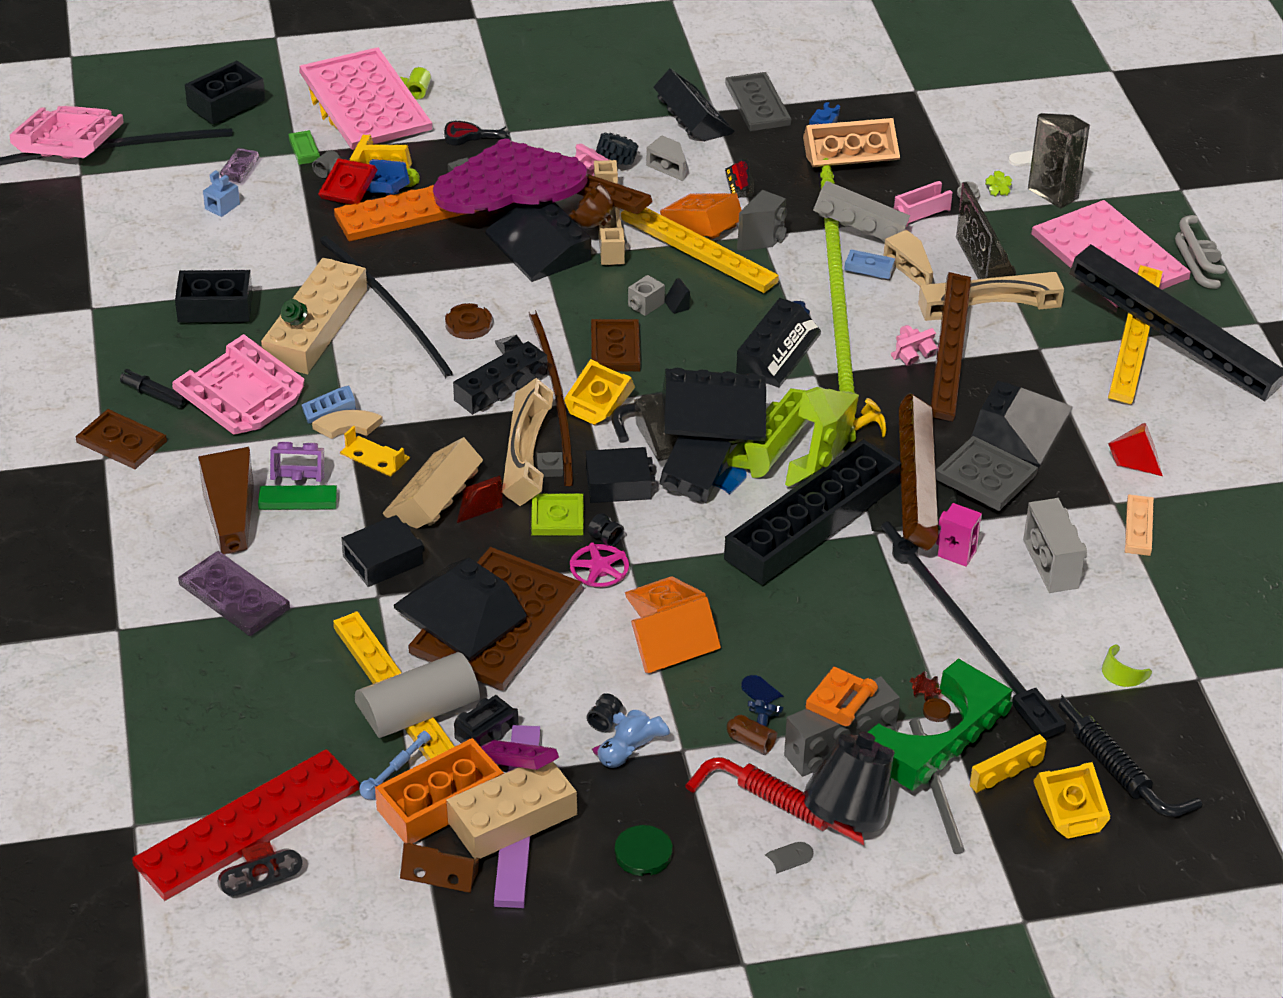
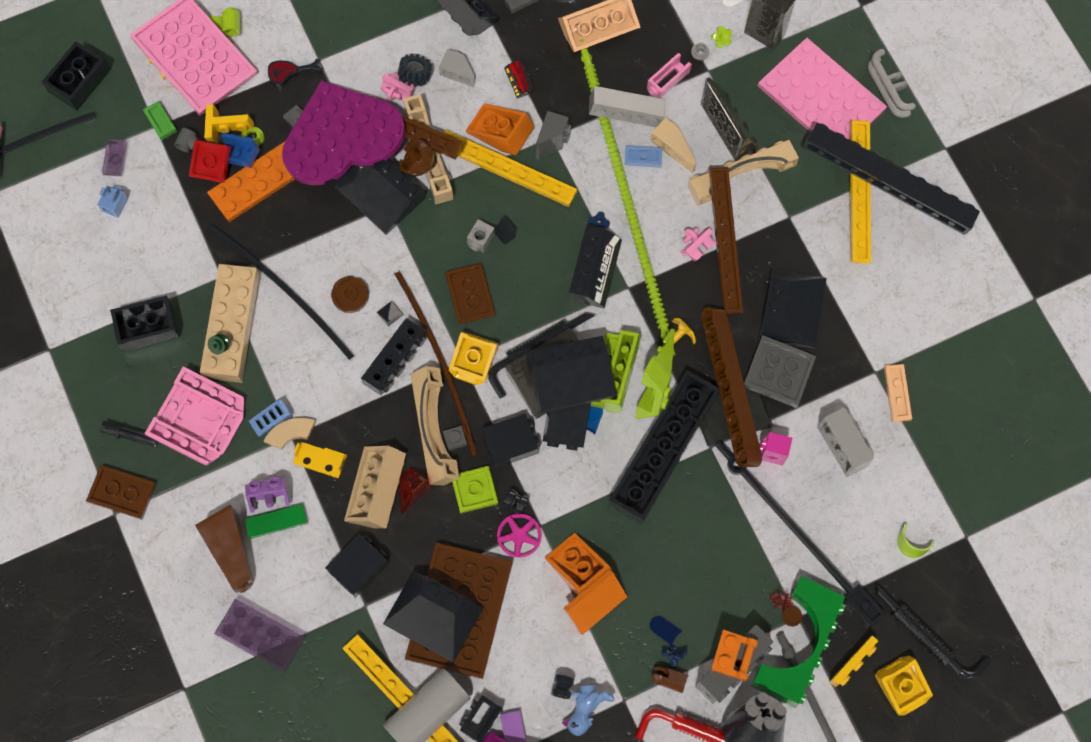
camera: 15 degrees left, 30 degrees up
(1136, 450) = (883, 317): red slope -> none

